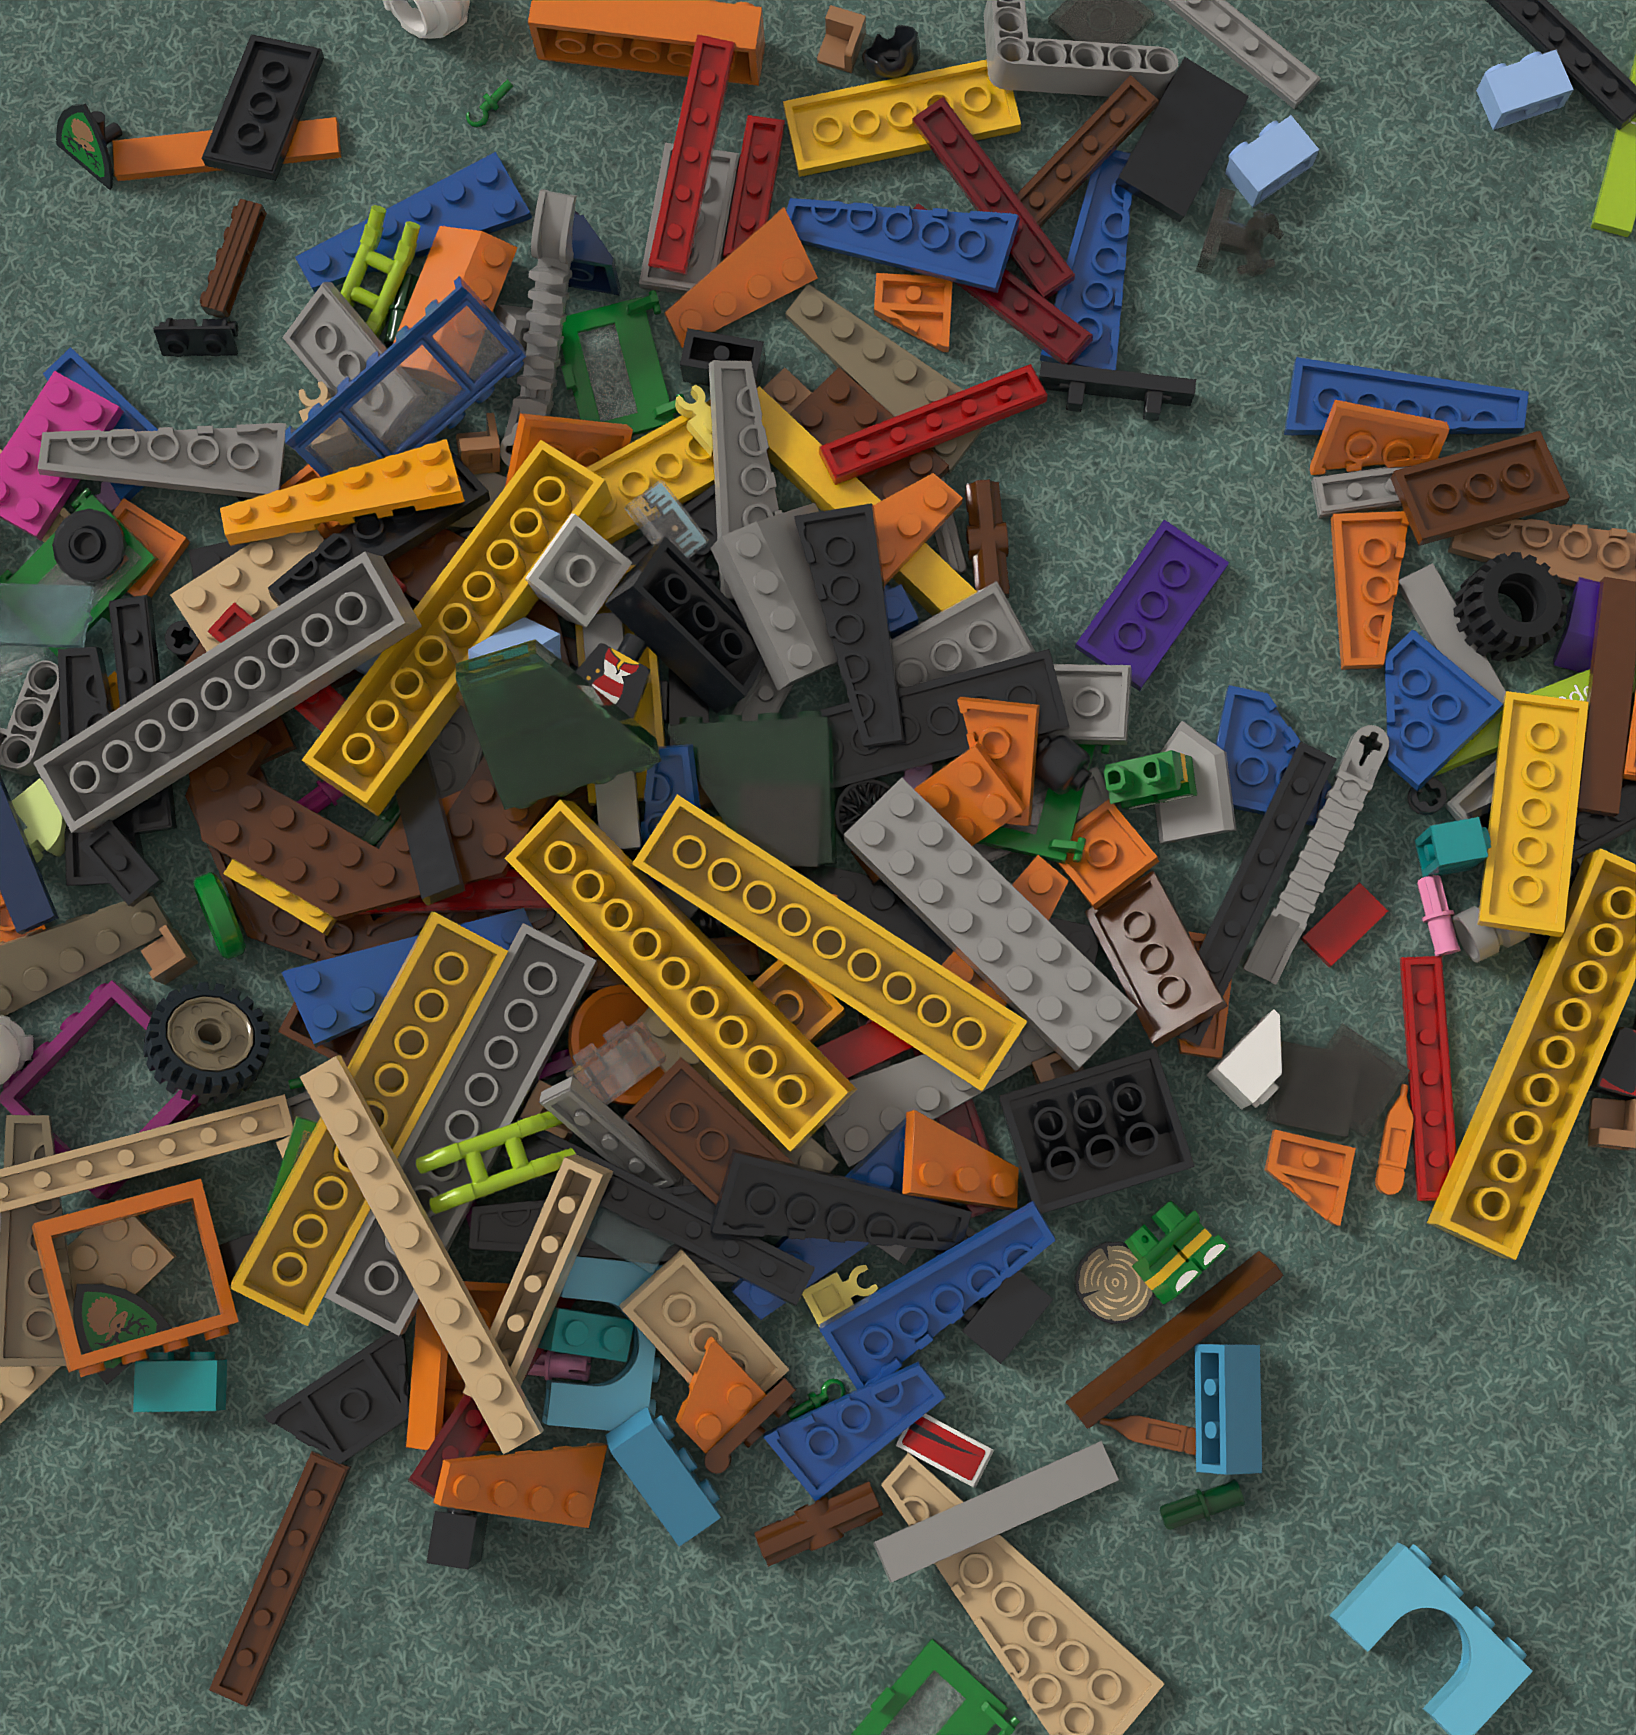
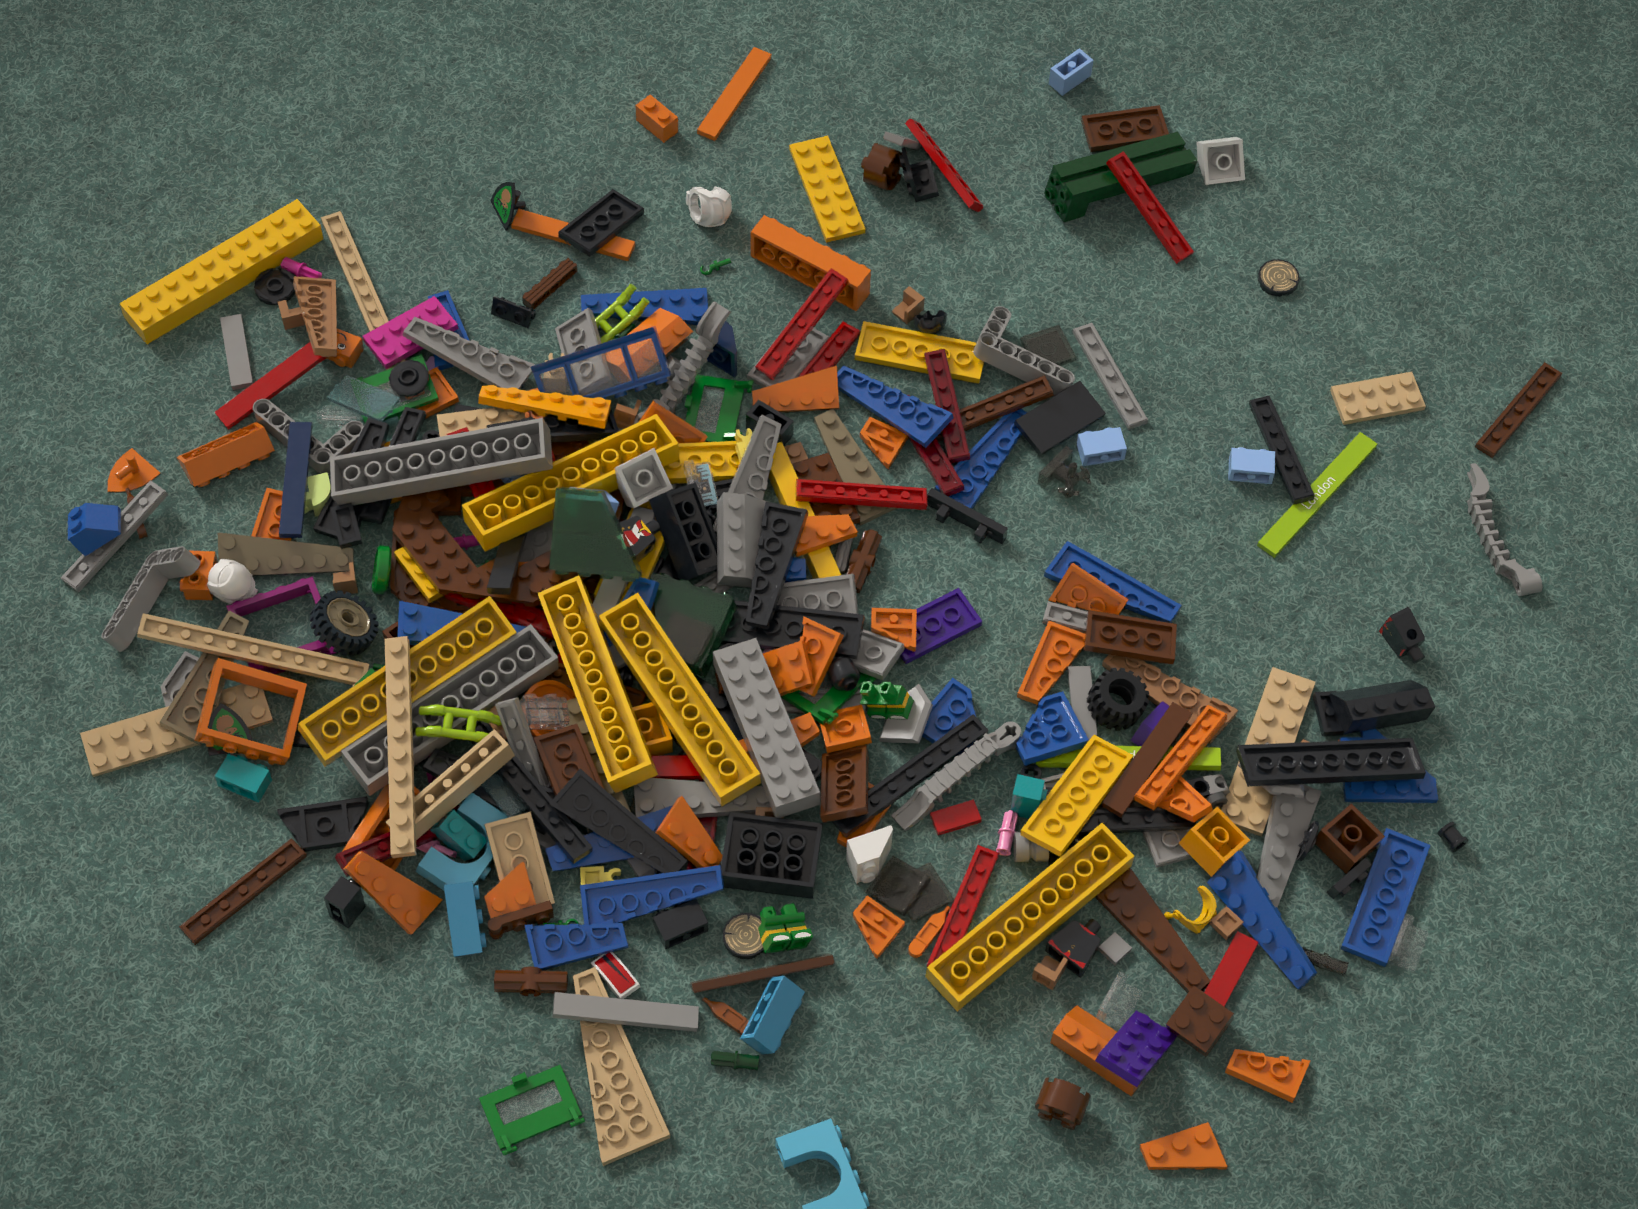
camera: 15 degrees right, 20 degrees down
(1101, 637) = (895, 625): none -> orange wing

